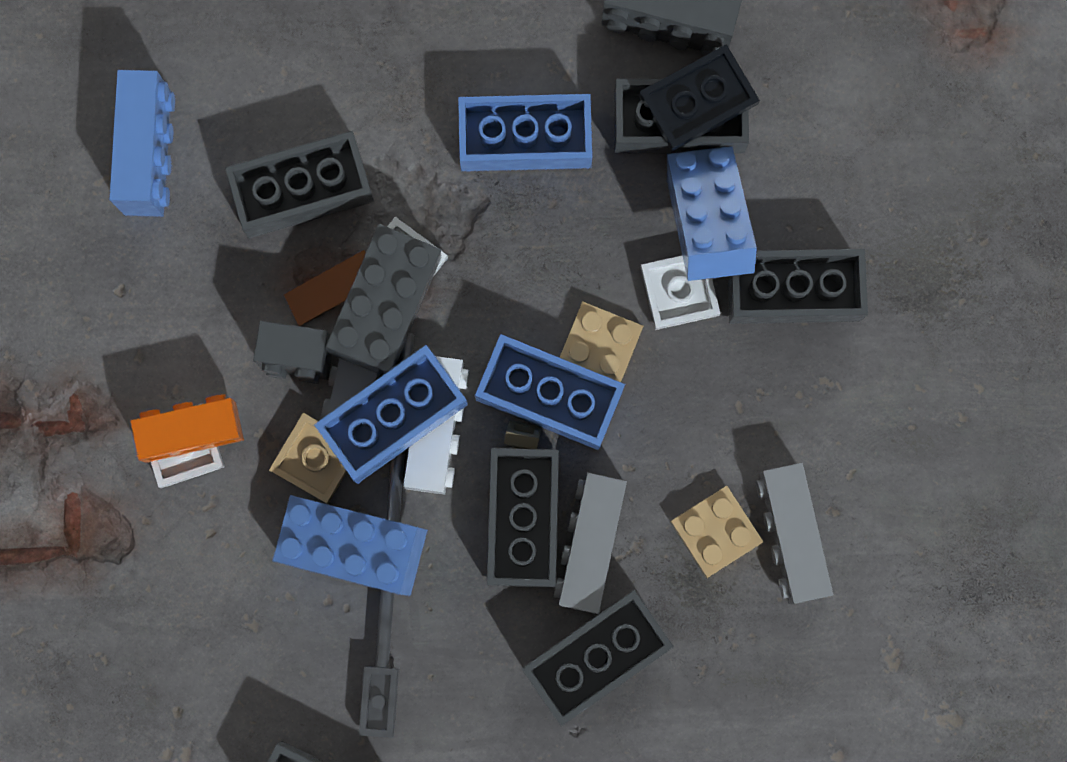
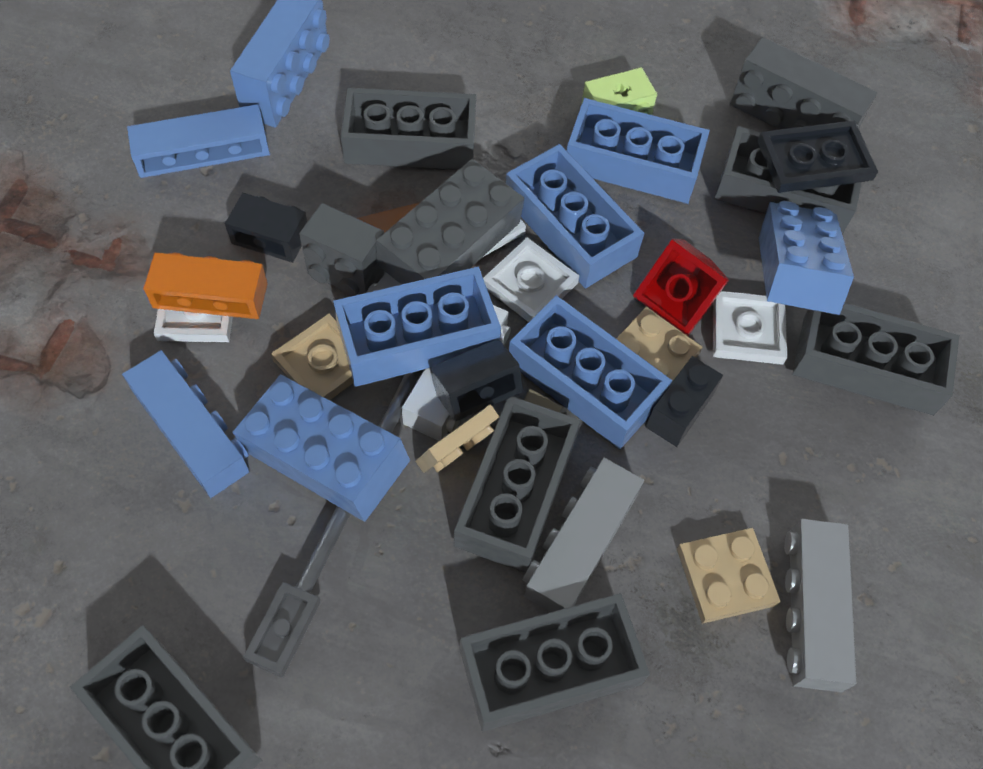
camera: 15 degrees right, 20 degrees down
(100, 266) = (197, 141): none -> medium blue brick
(209, 339) = (266, 227): none -> black brick
(224, 558) = (187, 423): none -> medium blue brick
(455, 508) = (467, 435): none -> tan plate
(459, 446) = (477, 379): none -> black brick
(469, 311) = (529, 279): none -> white plate
(486, 230) = (575, 215): none -> medium blue brick
(495, 53) = (625, 90): none -> yellowish green brick
(609, 269) = (681, 285): none -> red slope
(641, 389) = (684, 401): none -> black brick

